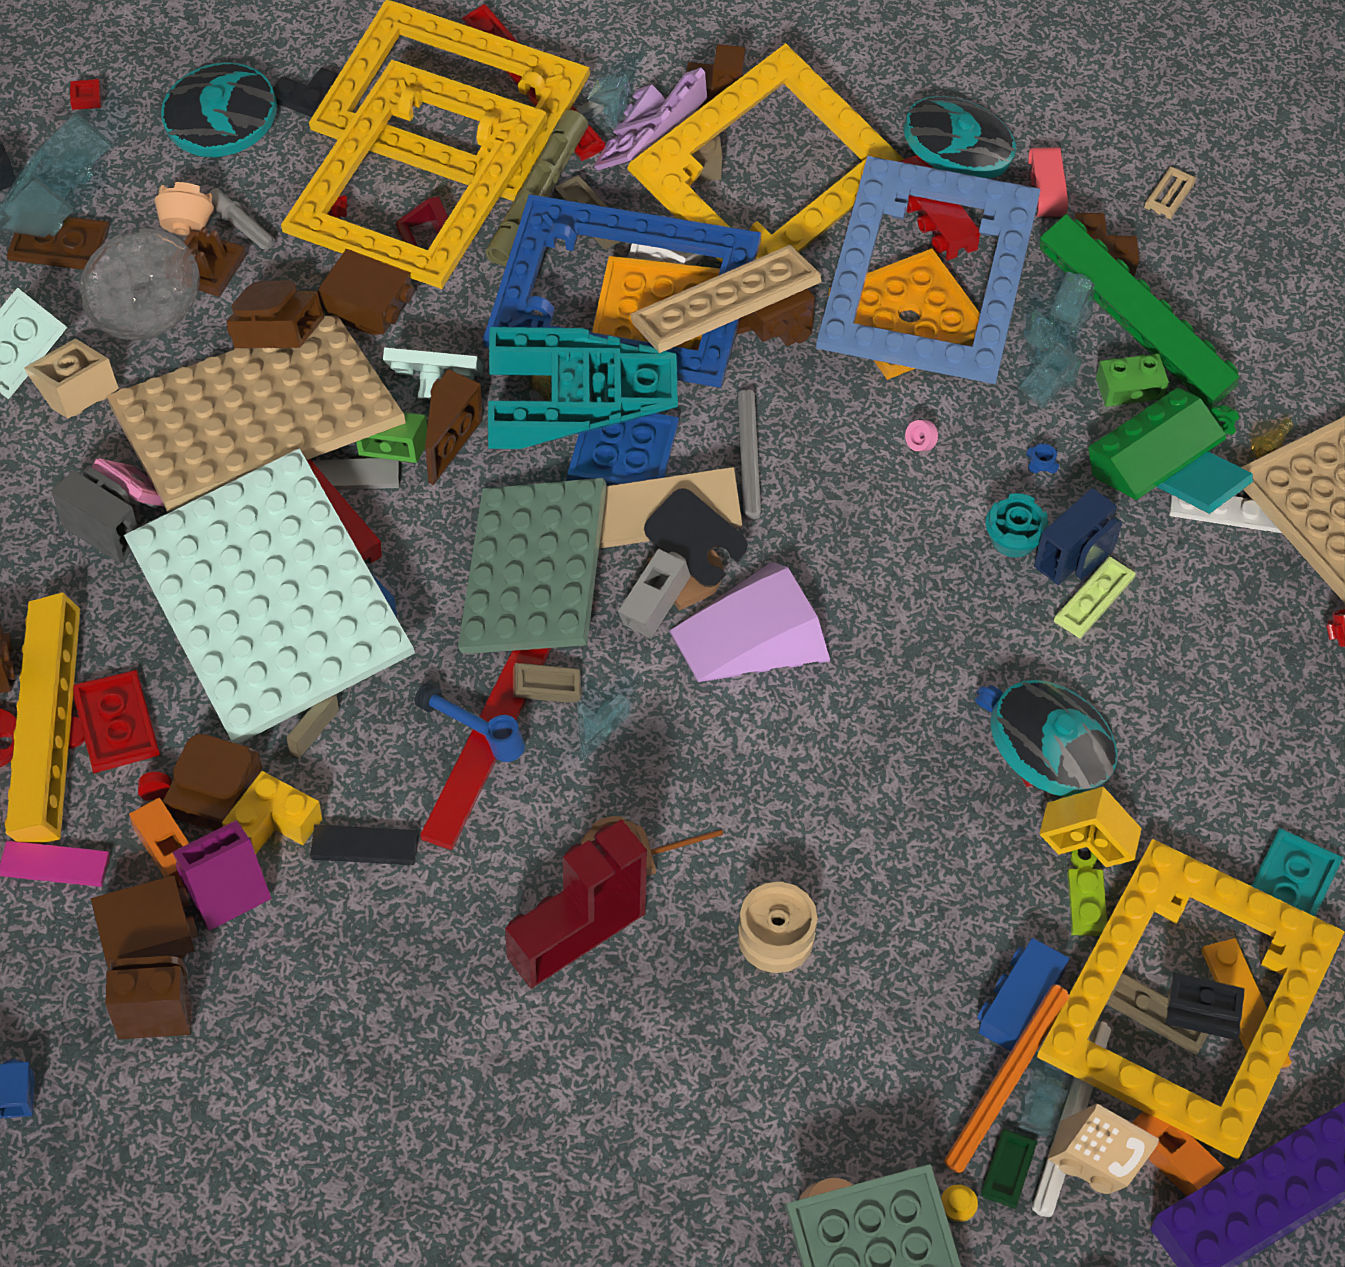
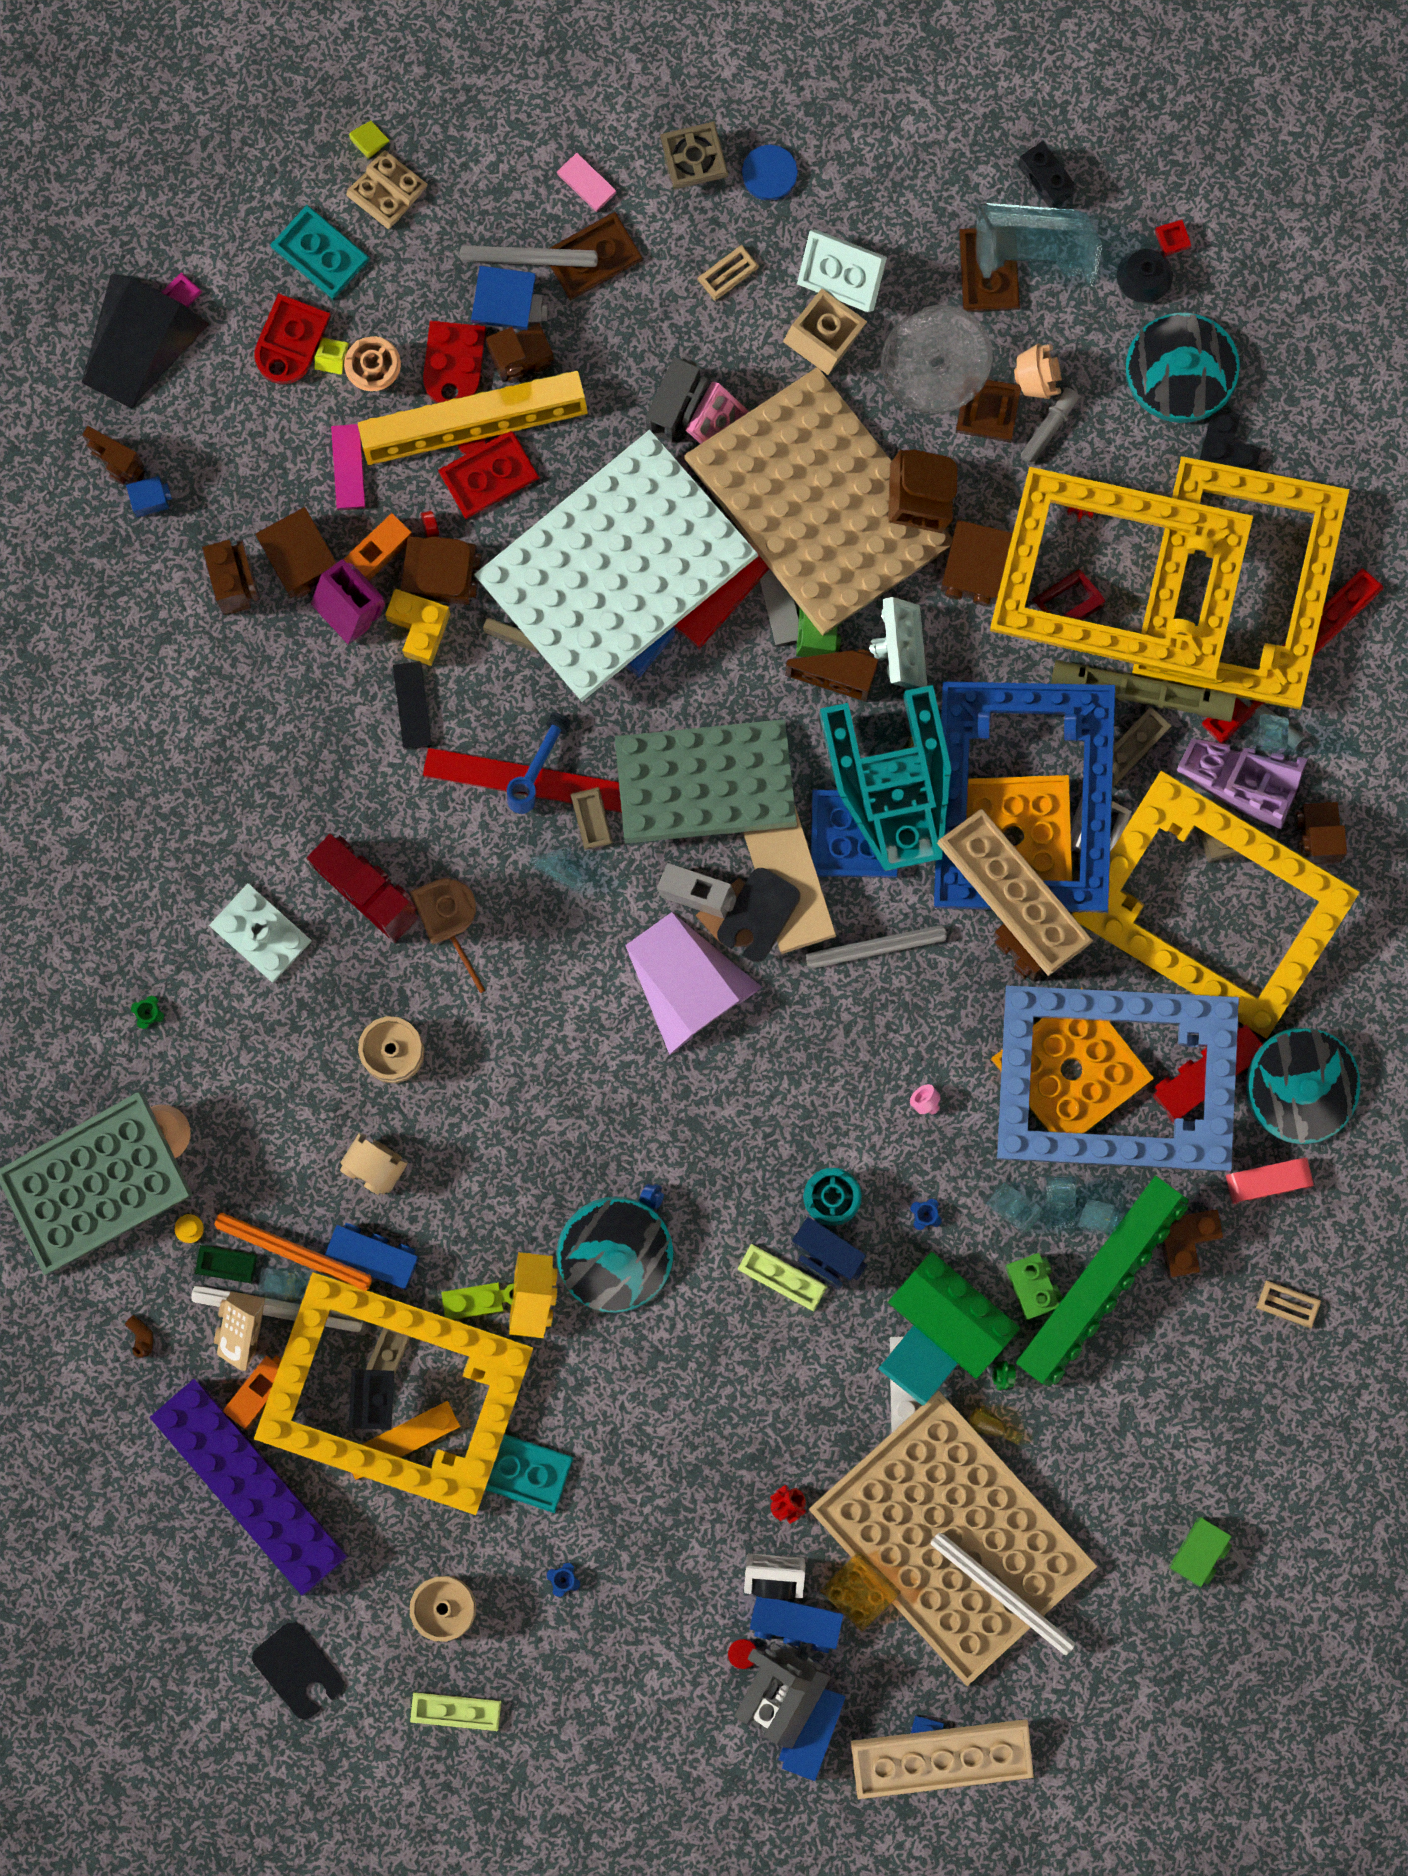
camera: 85 degrees right, 25 degrees up
(115, 116) = (1144, 275): none -> black cone
(600, 1058) = (260, 933): none -> light aqua plate
(674, 1197) = (140, 1008): none -> green plate
(913, 968) = (373, 1164): none -> tan brick

